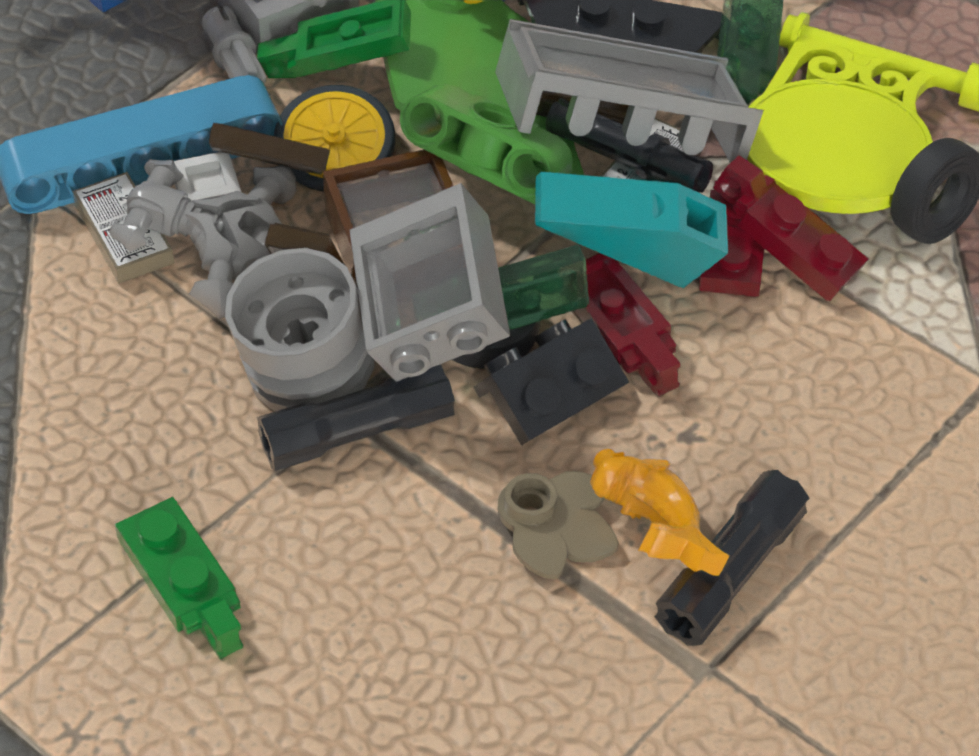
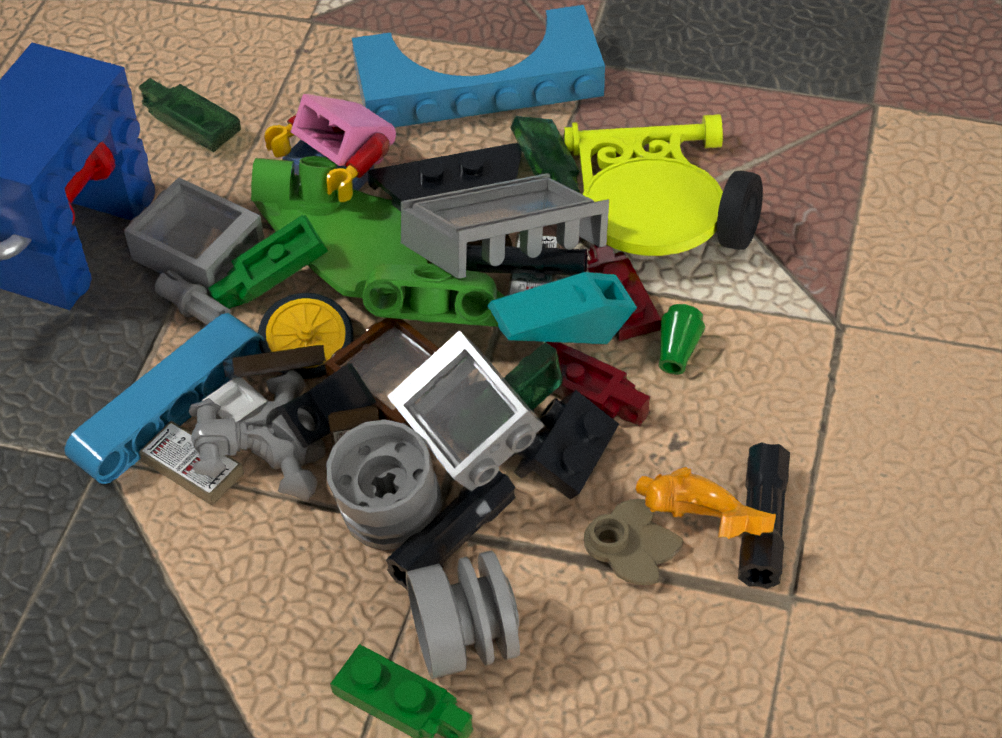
camera: 25 degrees left, 0 degrees up
(278, 506) = (463, 614): none -> light grey wheel
(312, 208) = (336, 393): none -> black bracket
(771, 309) = (679, 337): none -> green cone
(789, 229) = (659, 274): dark red hinge -> none

